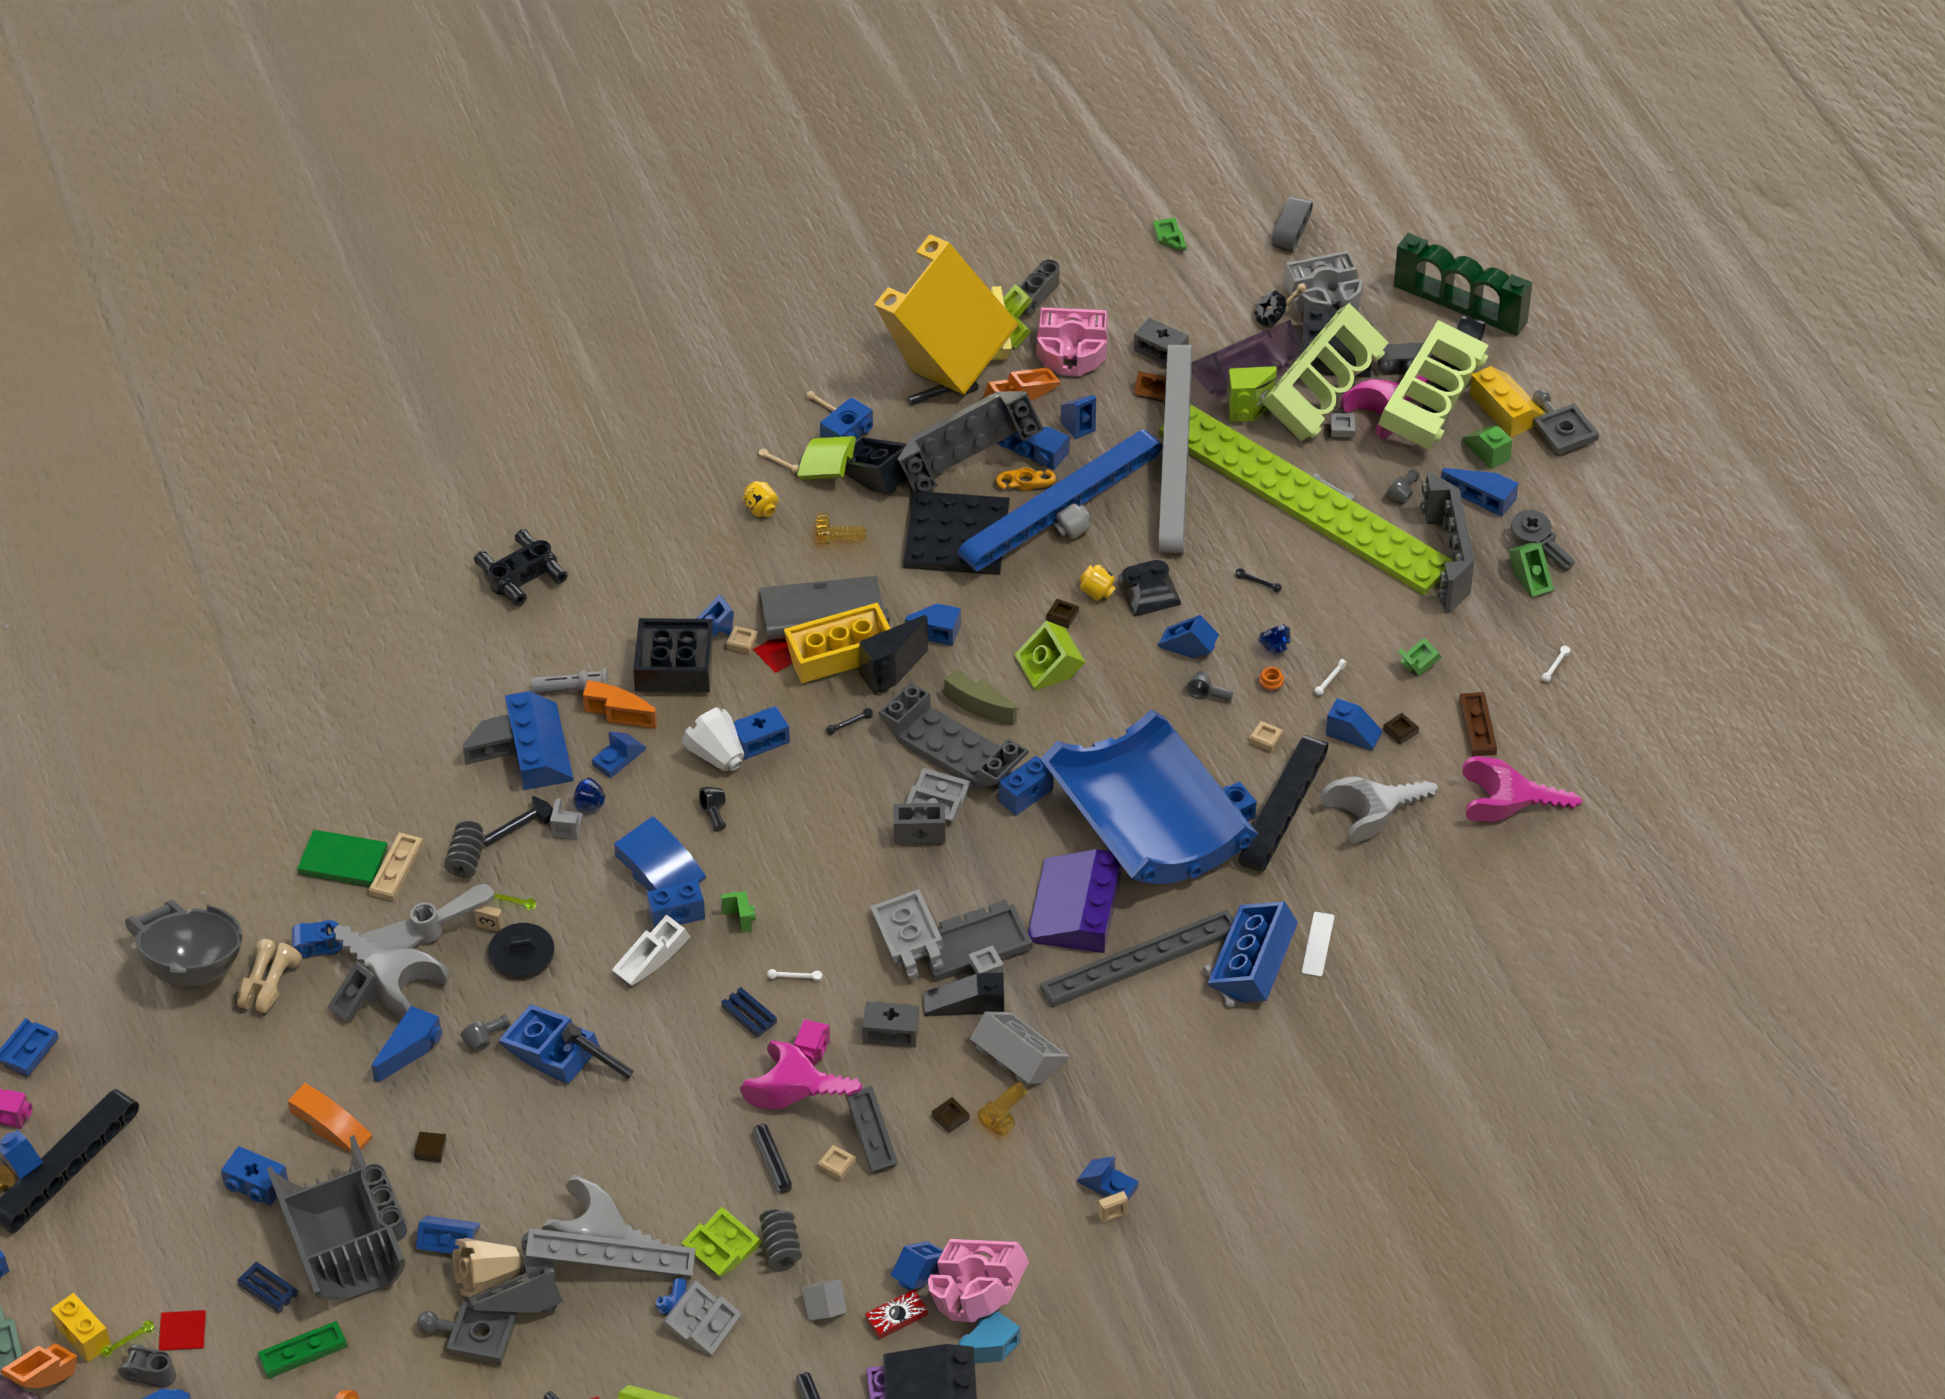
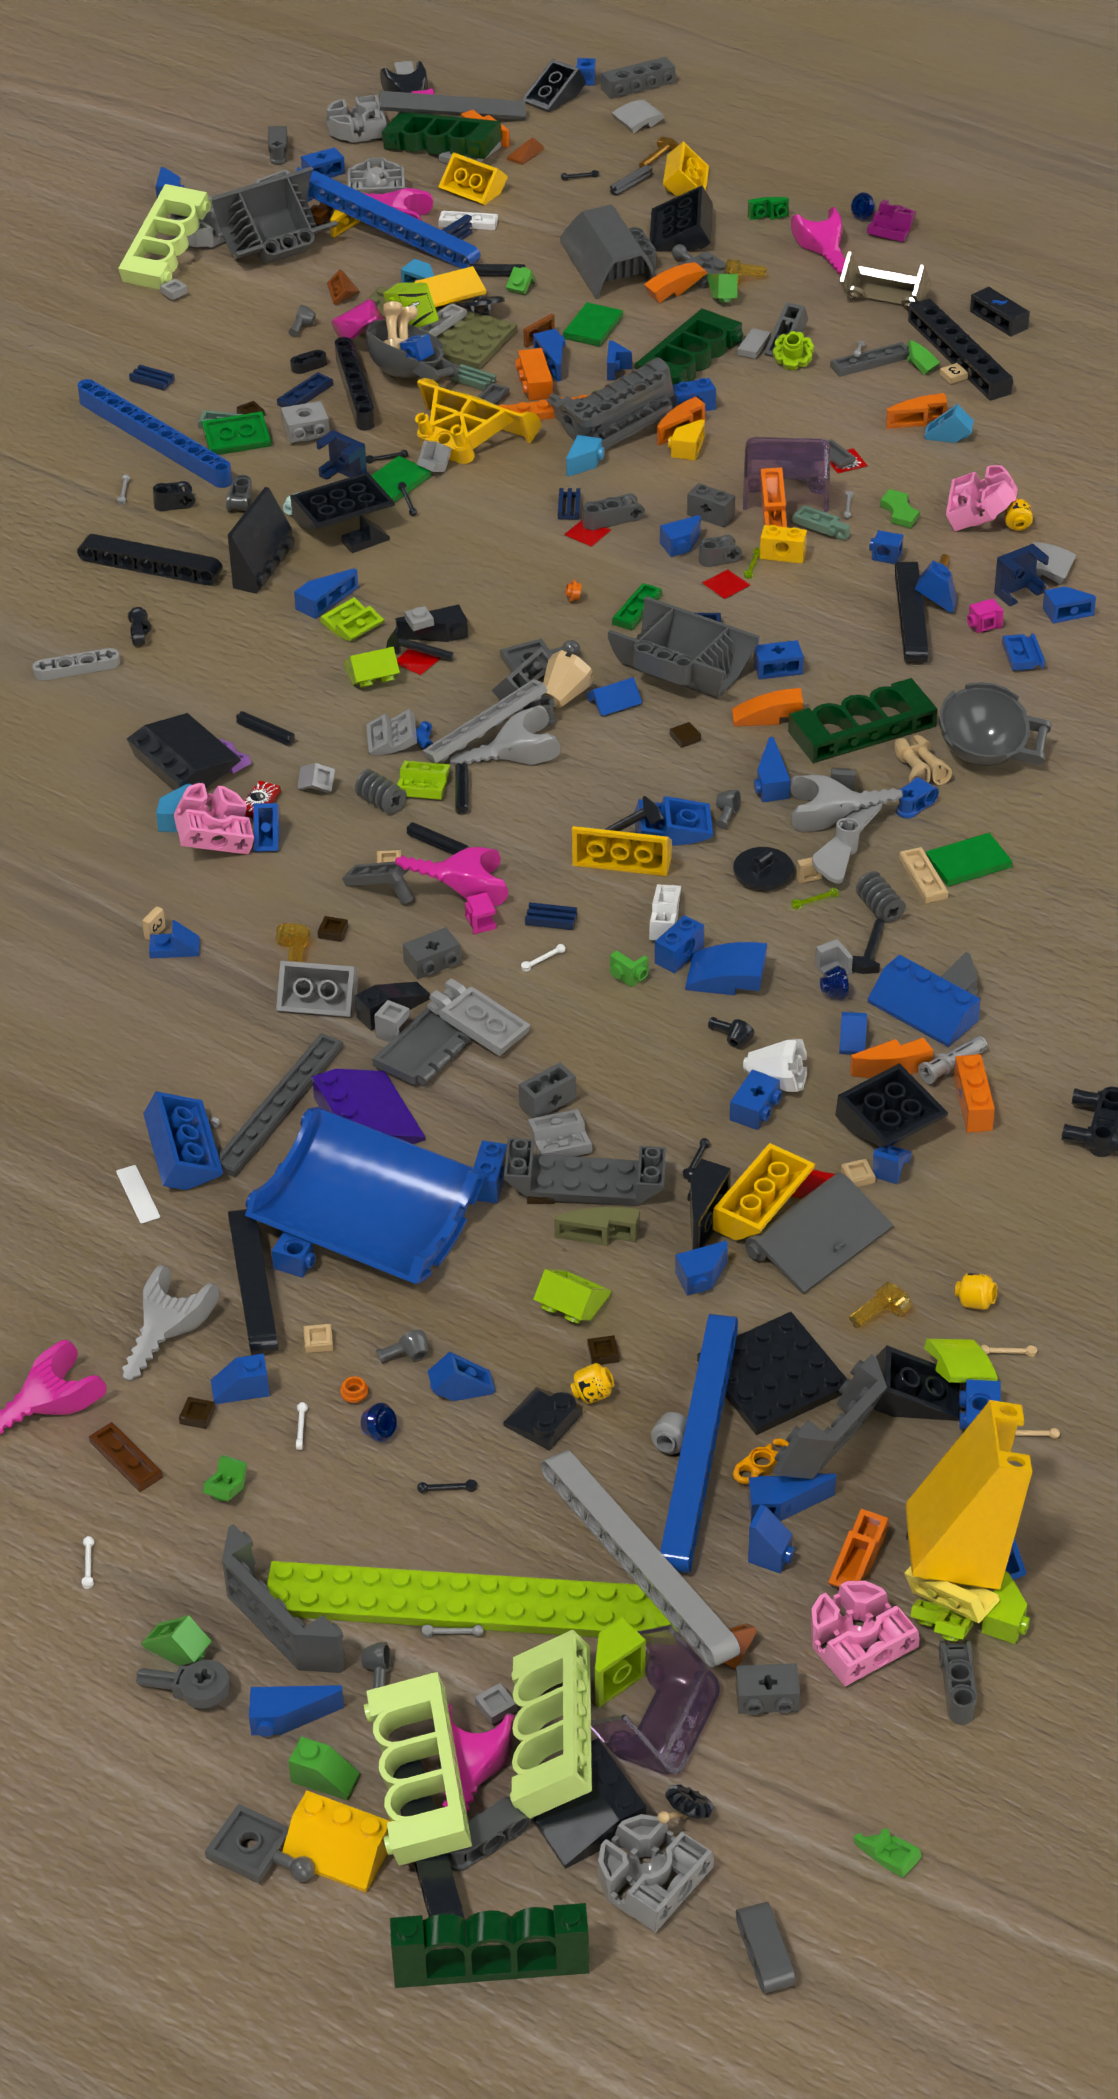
camera: 145 degrees right, 5 degrees down
(206, 1025) = (905, 696): none -> dark green fence
(591, 639) = (974, 1093): none -> orange brick
(628, 1027) = (621, 851): none -> yellow slope
(695, 1208) = (461, 788): none -> black axle

